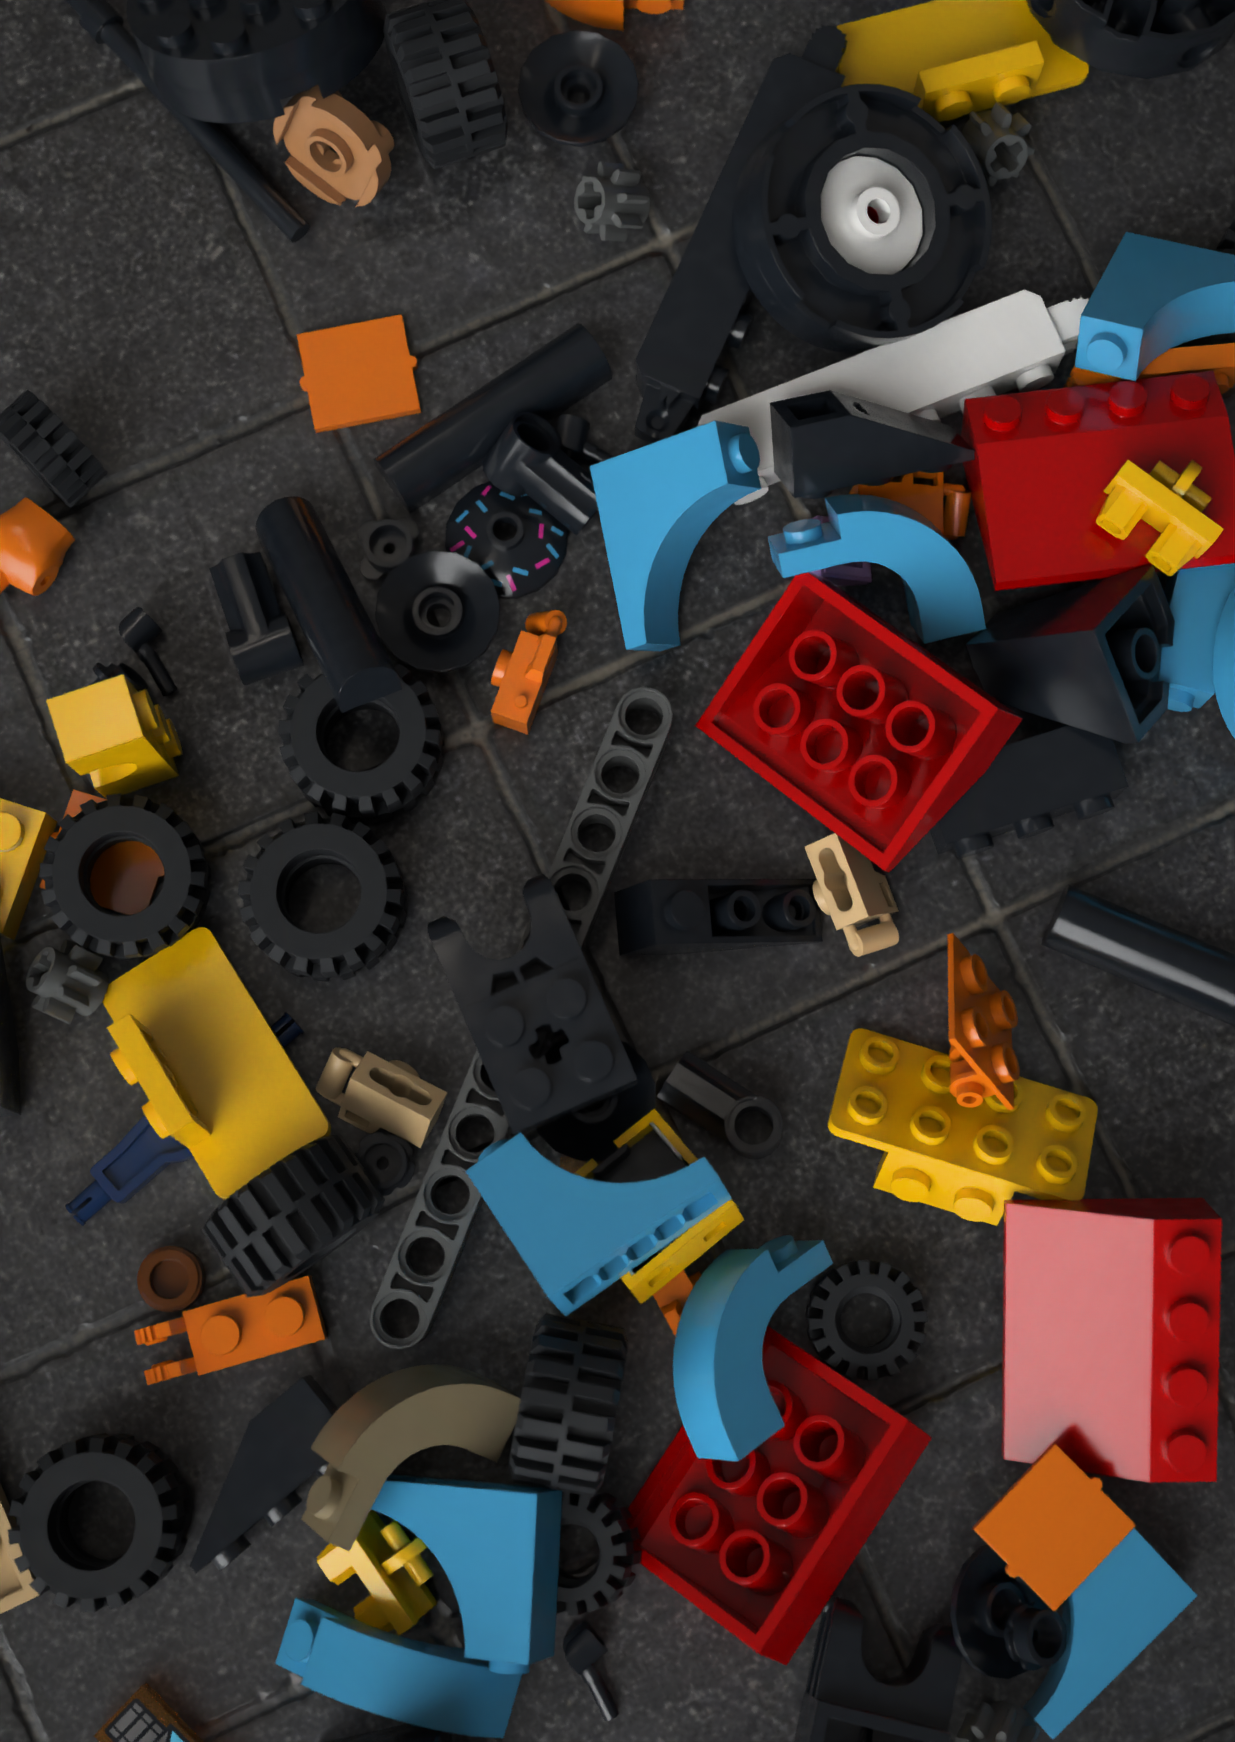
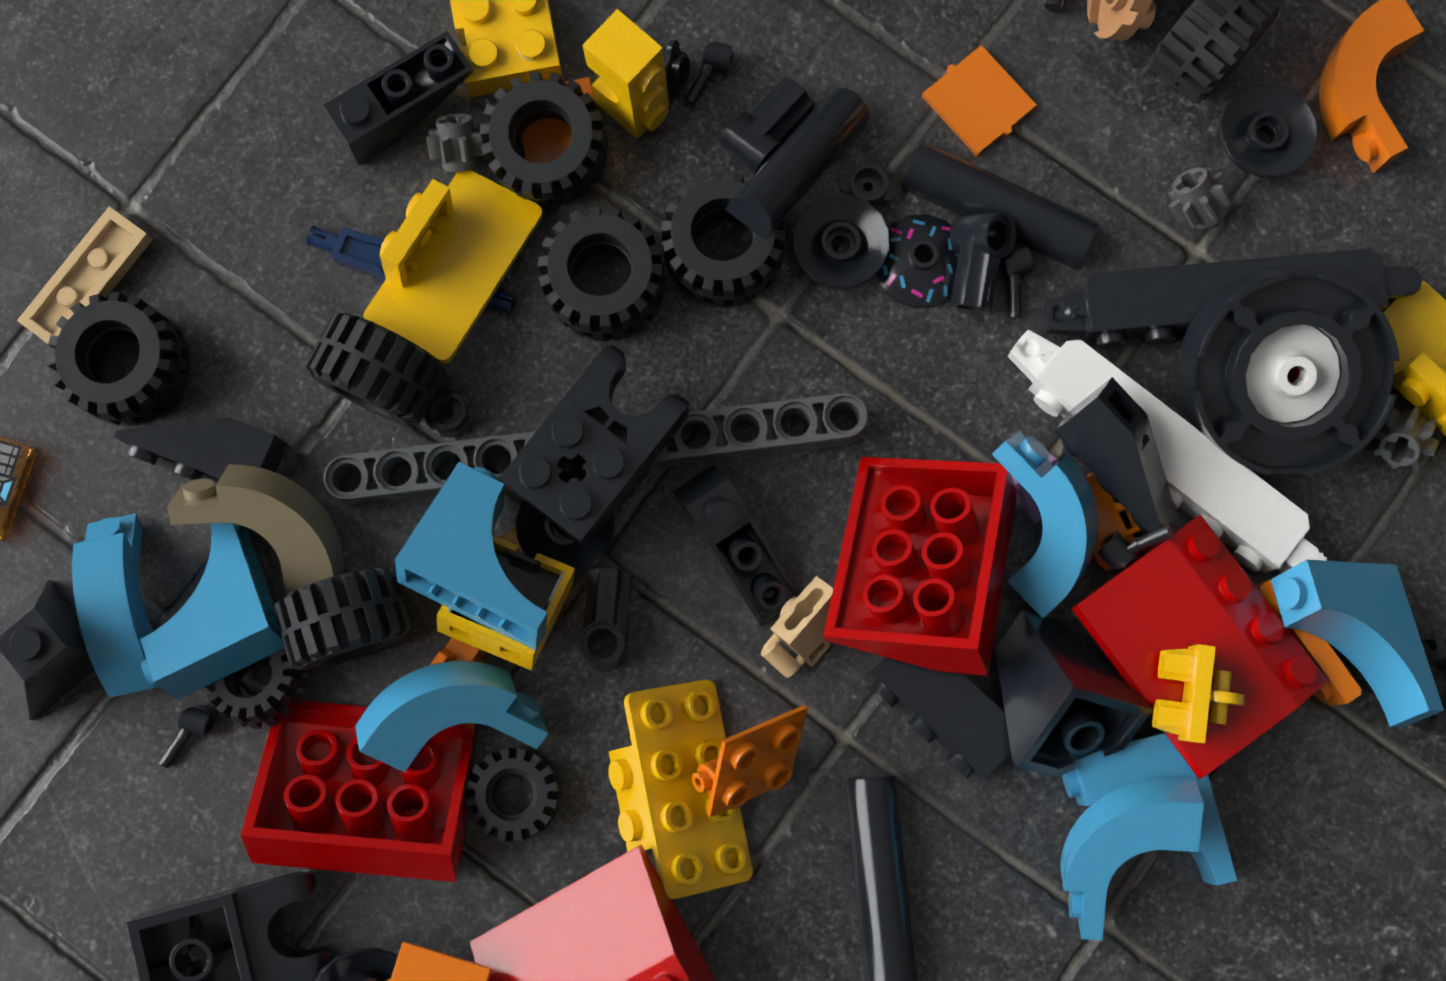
camera: 65 degrees right, 0 degrees up
(171, 1278) = (301, 319): reddish brown tile -> none
(239, 1330) = (287, 381): orange hinge -> none
(381, 1095) = (492, 386): tan piece -> none
(390, 1571) = (179, 562): yellow hips -> none
(526, 671) = (833, 323): orange piece -> none
(655, 512) = (989, 346): dark azure arch -> none
(960, 506) = (1119, 552): none -> black hand

